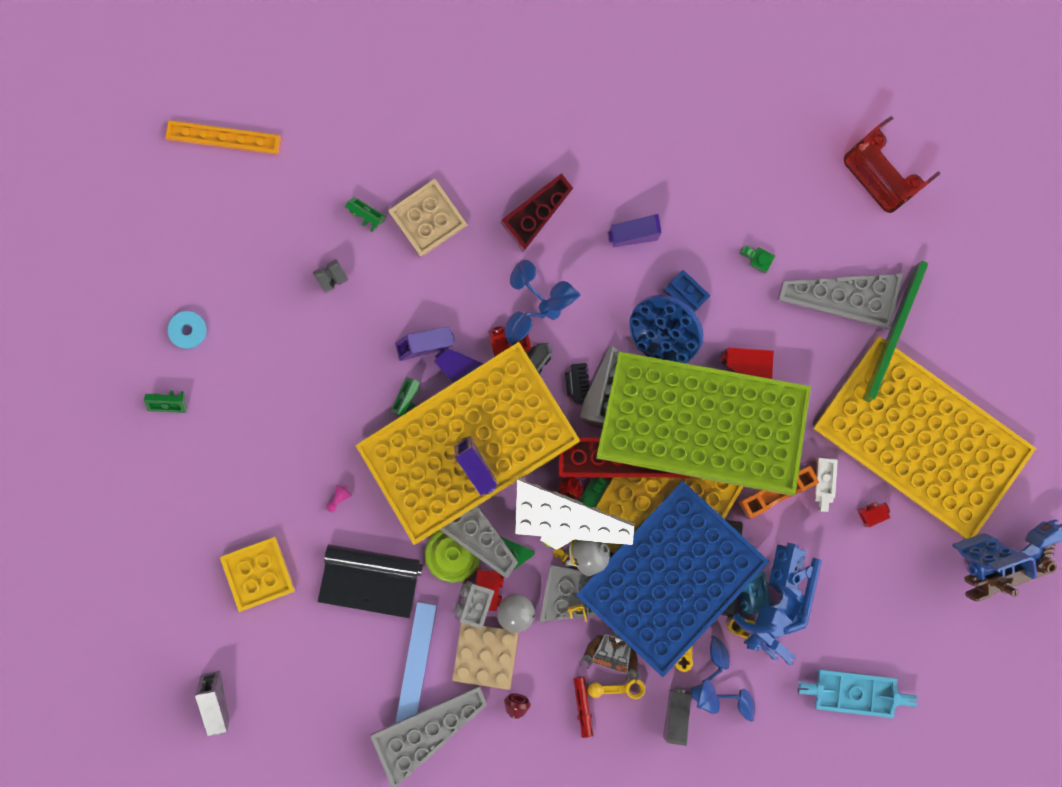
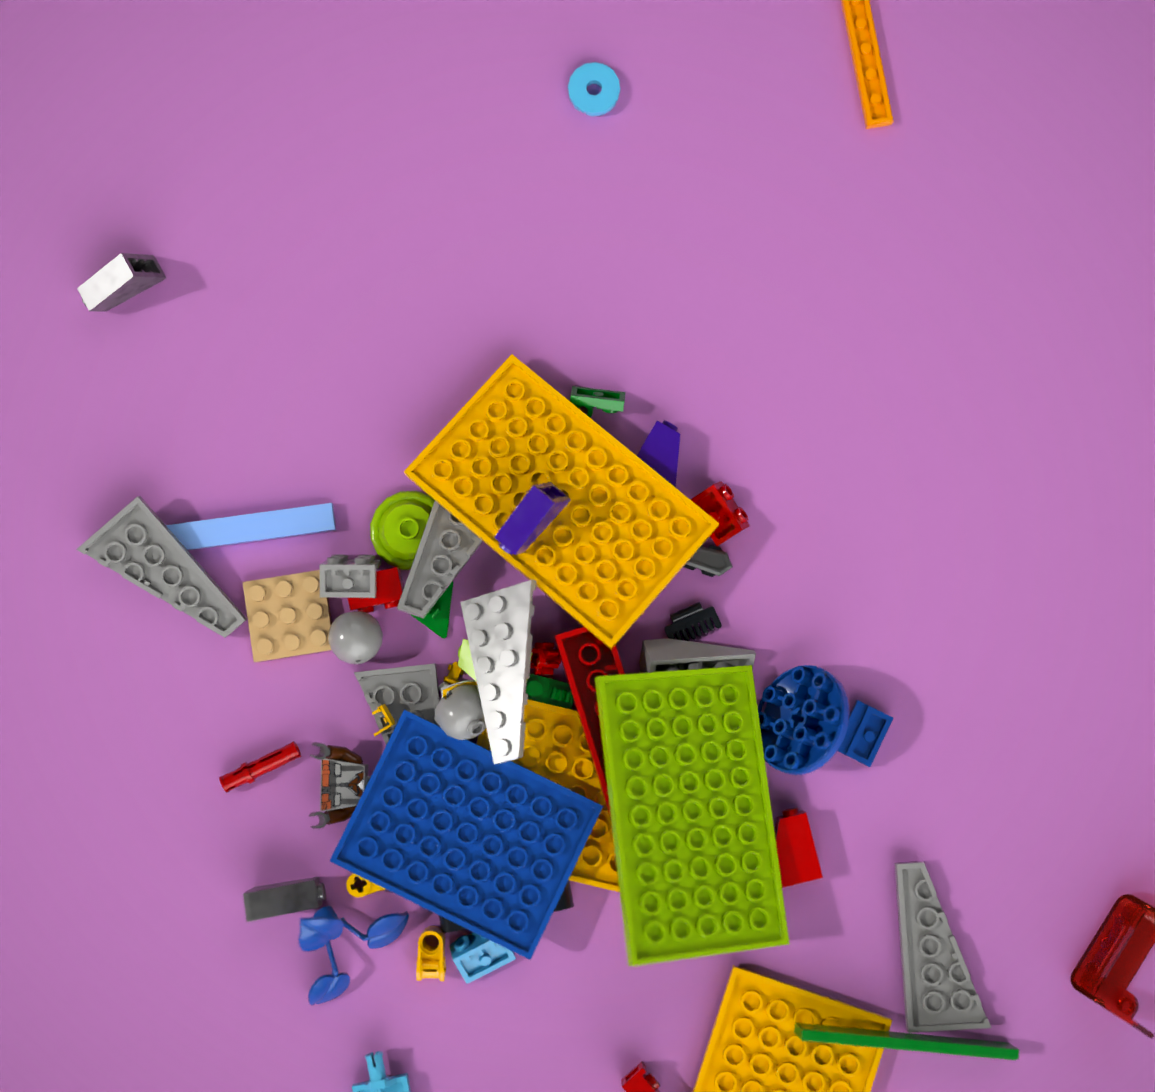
camera: 80 degrees right, 0 degrees up
(163, 403) = (488, 92): green plate -> none
(257, 574) = (304, 284): yellow plate -> none
(330, 276) = (726, 248): dark grey wheel -> none
(339, 496) = (440, 357): dark pink piece -> none
(363, 210) = (829, 262): green plate -> none
(379, 578) = (346, 446): black door -> none
(424, 343) = (677, 401): slope -> none
(428, 218) = (847, 351): tan plate -> none
(516, 705) = (235, 677): dark red cone -> none
(532, 215) = (901, 490): dark red wedge -> none
(561, 296) = (799, 560): blue plant -> none
(595, 689) = (287, 777): yellow piece -> none
(635, 231) = (924, 635): dark purple slope -> none
(759, 259) = (942, 820): green plate -> none
(764, 500) = (609, 925): orange arch -> none
(791, 611) = (476, 1012): blue piece -> none
(826, 488) = (664, 1006): white hinge -> none

